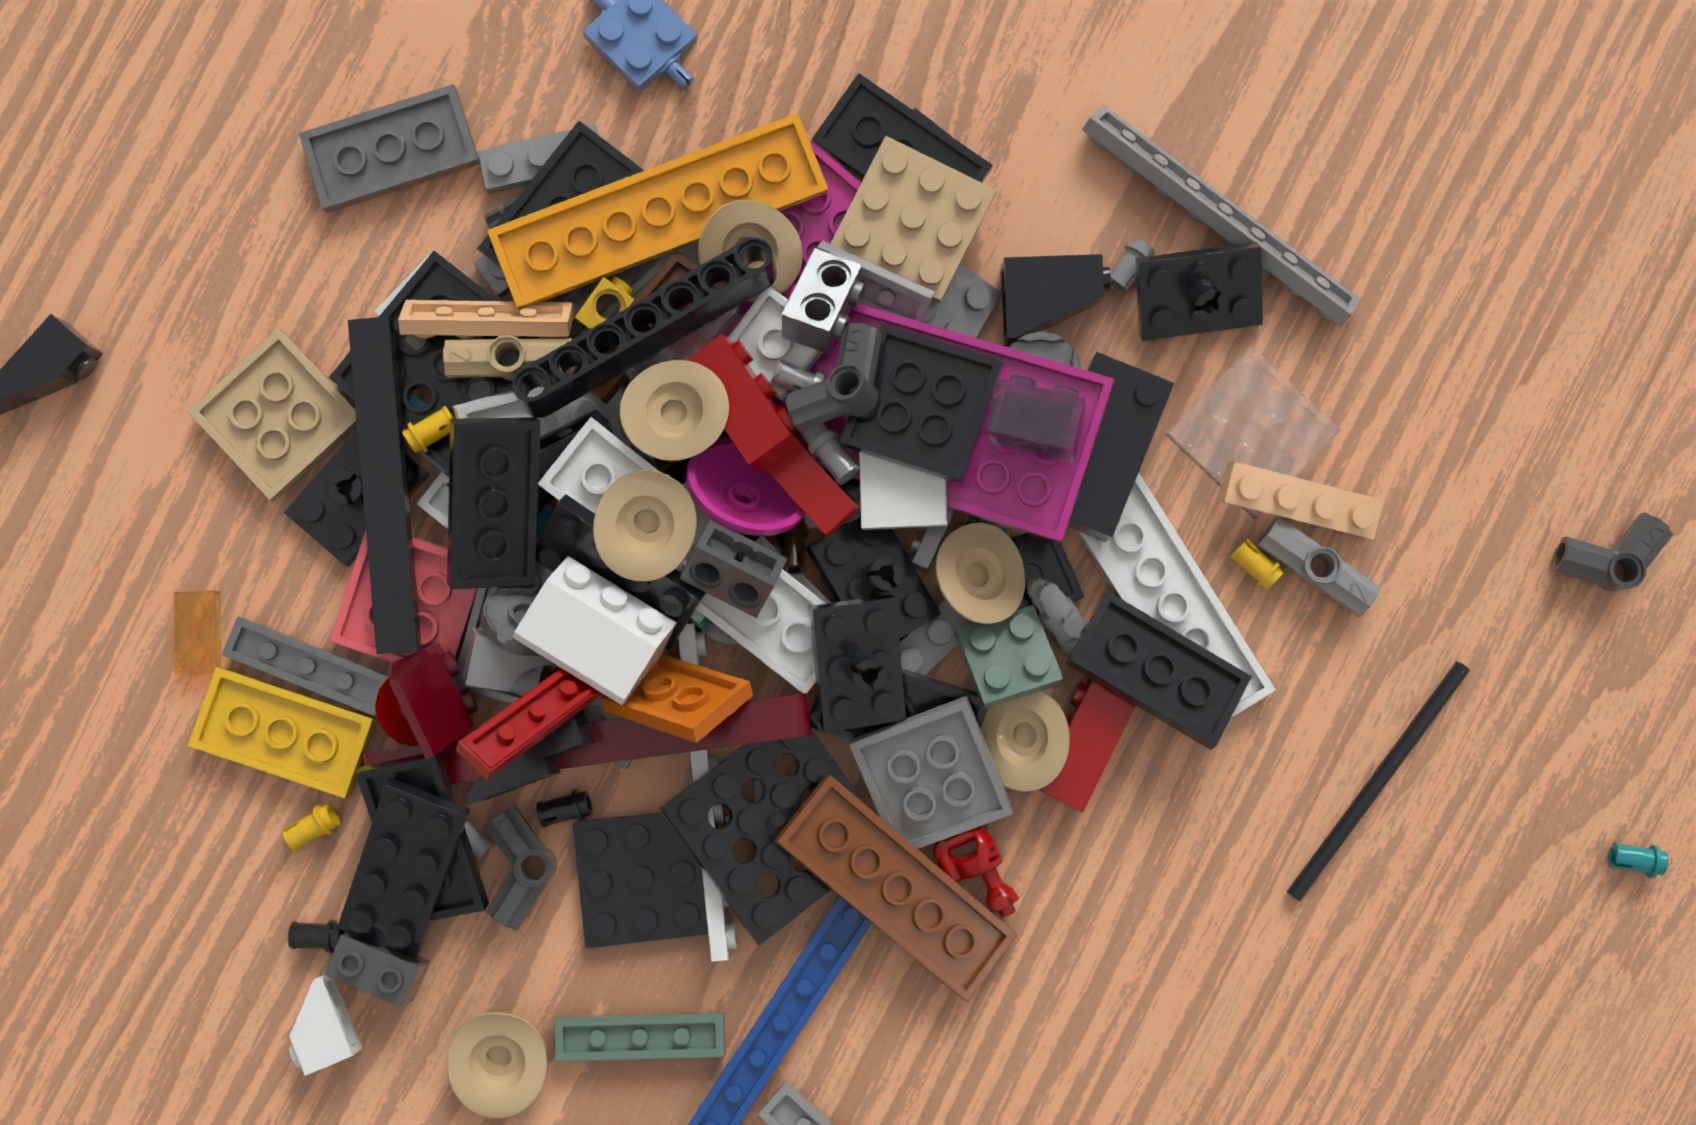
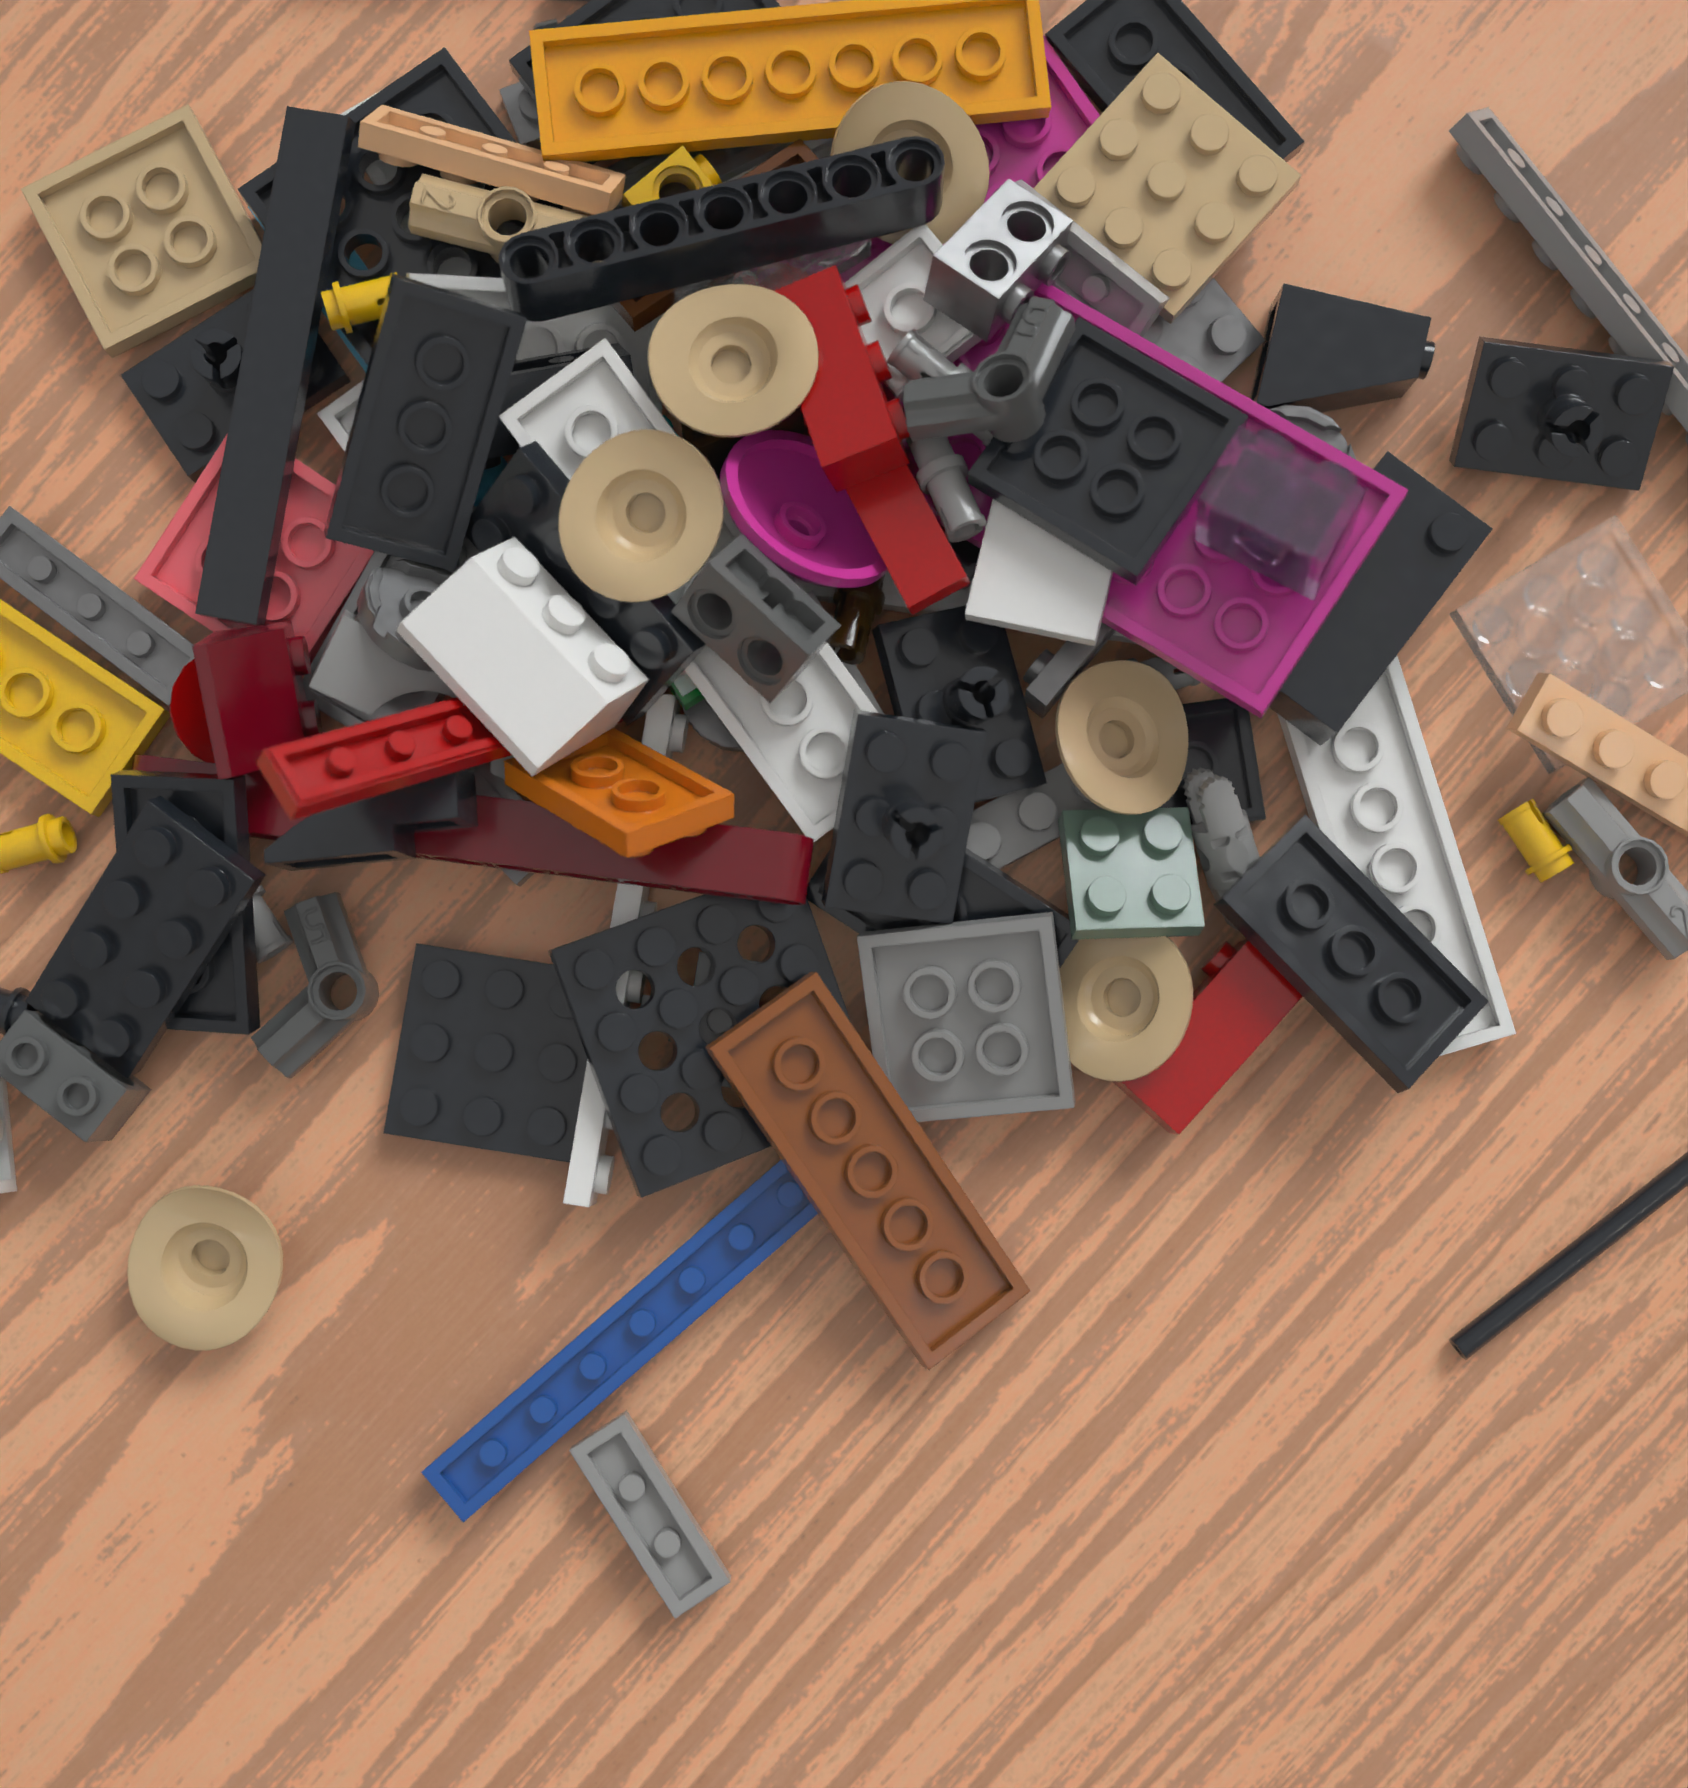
camera: 15 degrees right, 0 degrees up
(564, 808) = (410, 919): black pin -> none
(639, 1036) = (427, 1286): sand green plate -> none
(979, 862) = (1008, 1167): red piece -> none
(1125, 271) = (1457, 356): light grey pin -> none

